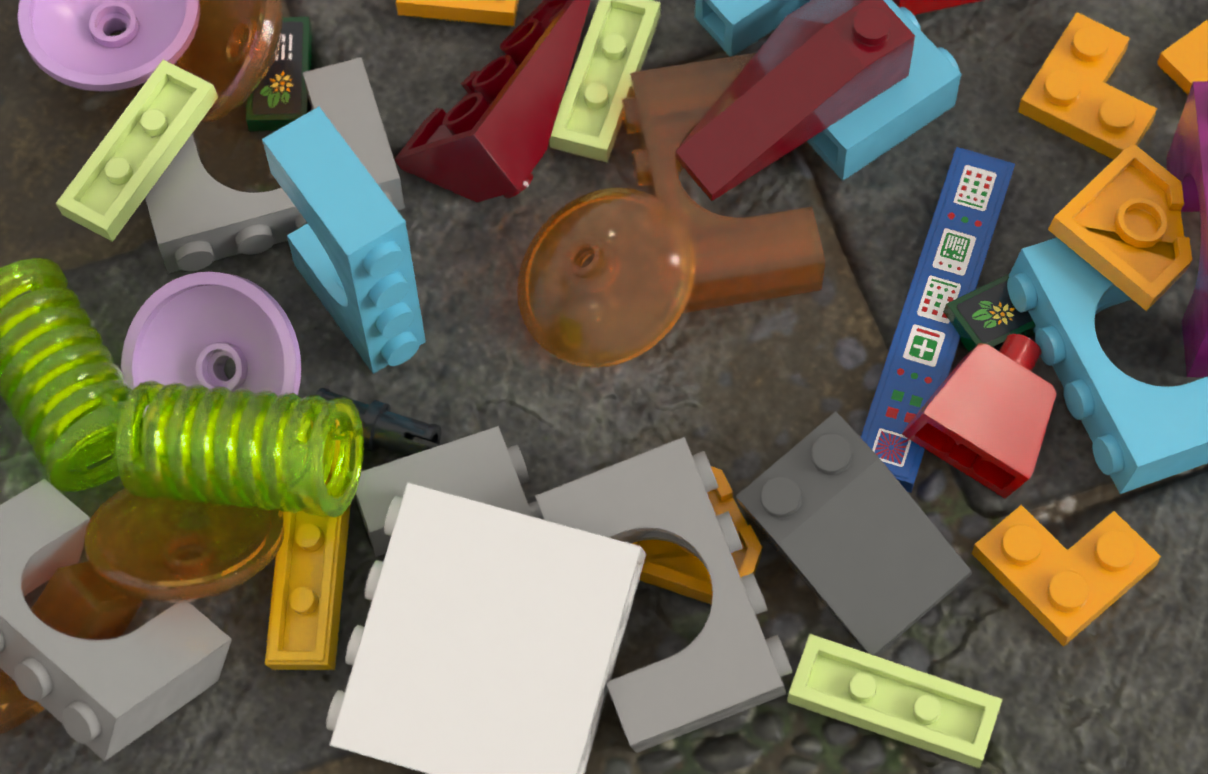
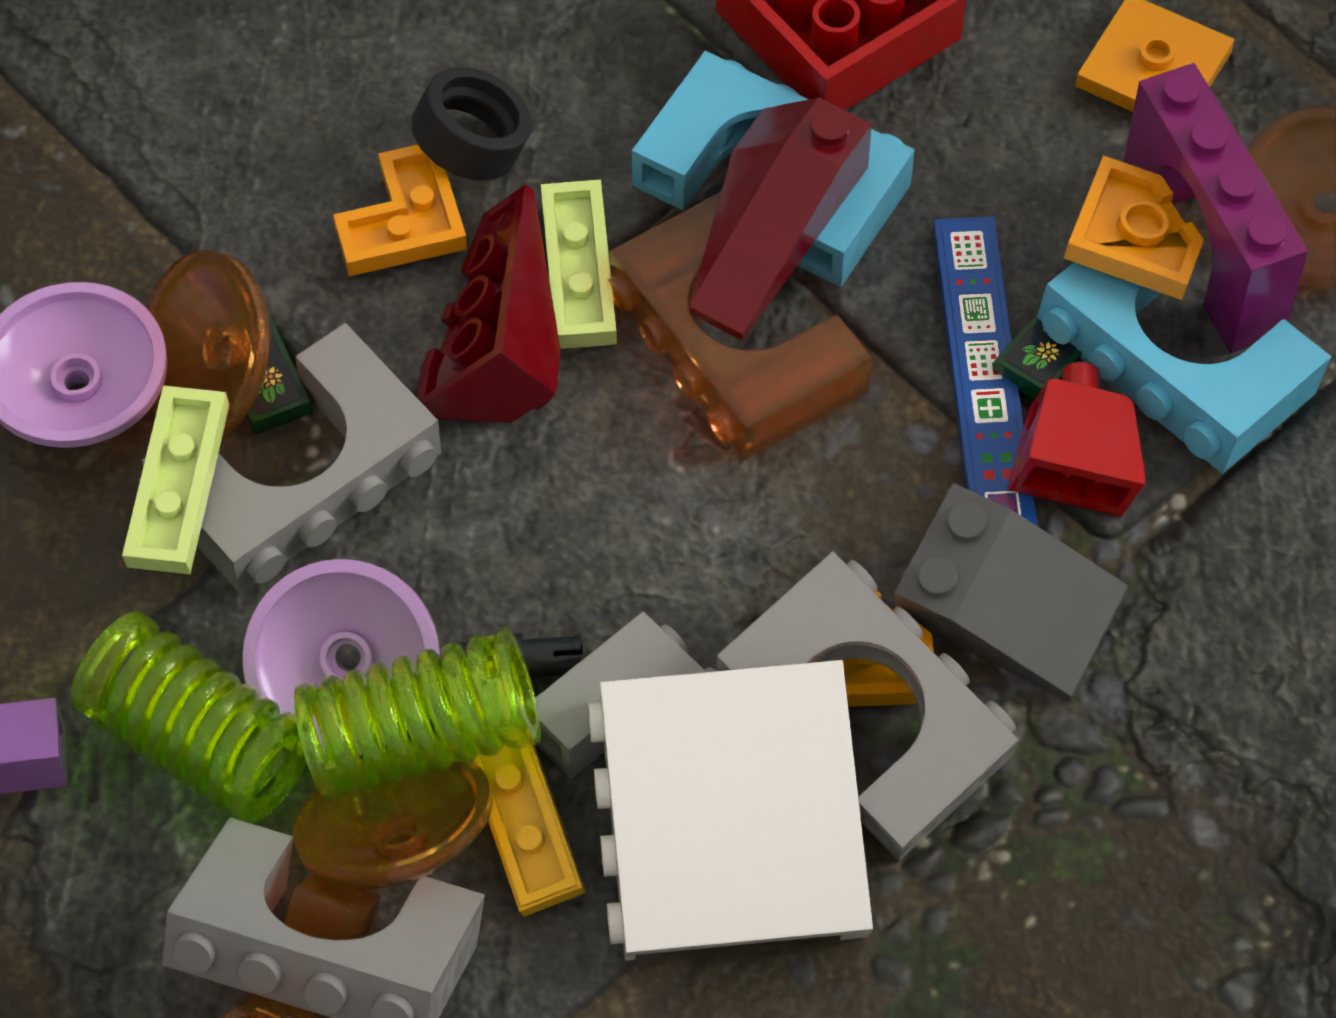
camera: 25 degrees left, 5 degrees down
(353, 240) = (448, 490): medium azure arch -> none
(624, 295) = (694, 468): clear orange dish -> none
(894, 700) = (1112, 725): yellowish green plate -> none
(1064, 585) = (1204, 572): light orange plate -> none
(1074, 95) = (1021, 144): light orange plate -> none

